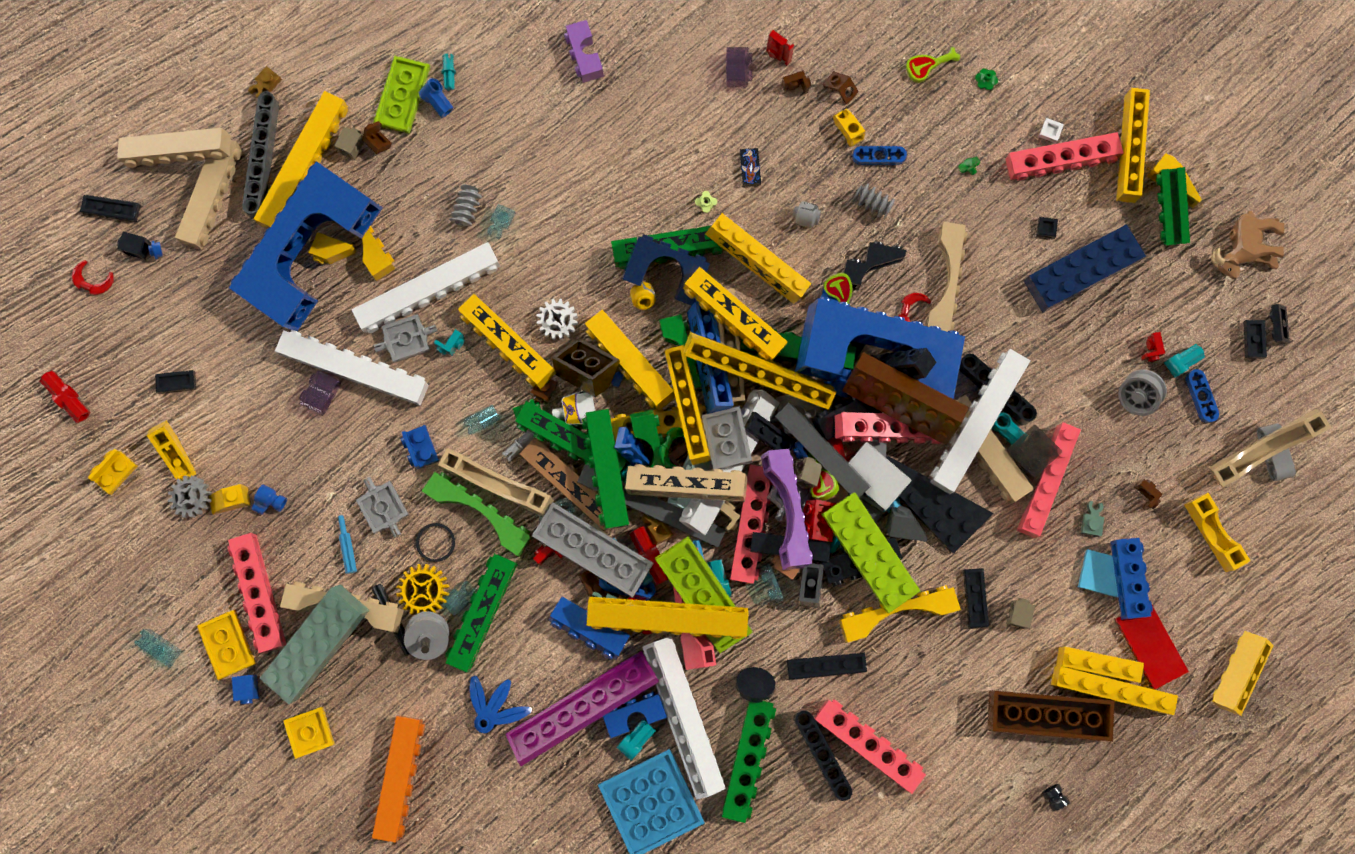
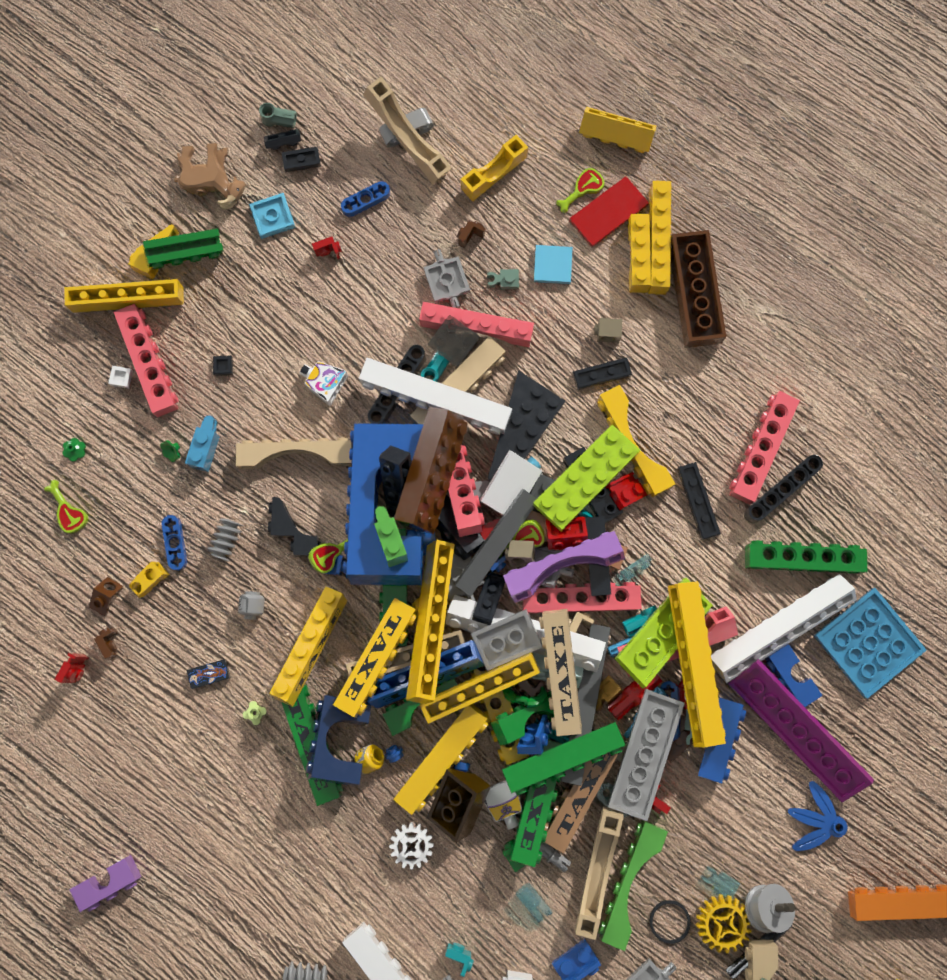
camera: 100 degrees left, 0 degrees up
(481, 613) = (731, 855): green brick -> none
(501, 218) = (311, 932): clear light blue plate -> none
(508, 342) = (446, 896): yellow brick -> none
(545, 393) = (488, 843): reddish brown bracket -> none
(633, 743) = (819, 672): teal piece -> none
(642, 319) = (394, 753): none -> blue plate
(738, 66) = (99, 709): clear purple brick -> none
(755, 684) = (735, 564): black tile -> none
(811, 586) = (629, 528): dark grey slope -> none
(845, 343) = (389, 538): none -> bright green hinge
(850, 592) = (626, 491): none -> red plate
(903, 524) = (550, 450): dark grey slope -> none
(909, 300) = (322, 486): red piece -> none
(969, 196) = (203, 445): none -> dark azure hinge
(1014, 320) = (324, 380): none -> torso
(1055, 797) = (767, 273): black wheel -> none
(1084, 268) = (260, 323): dark blue brick -> none
(1101, 460) = (446, 279): none -> light grey plate
(1131, 578) = (554, 236): blue brick -> none
(1142, 392) = (375, 251): light grey wheel -> none
(1181, 362) = (337, 222): teal piece -> none
(1187, 630) = (588, 182): none -> lime piece
(1197, 300) = (272, 215): none -> medium azure tile
(1305, 325) = (278, 116): none -> sand green piece

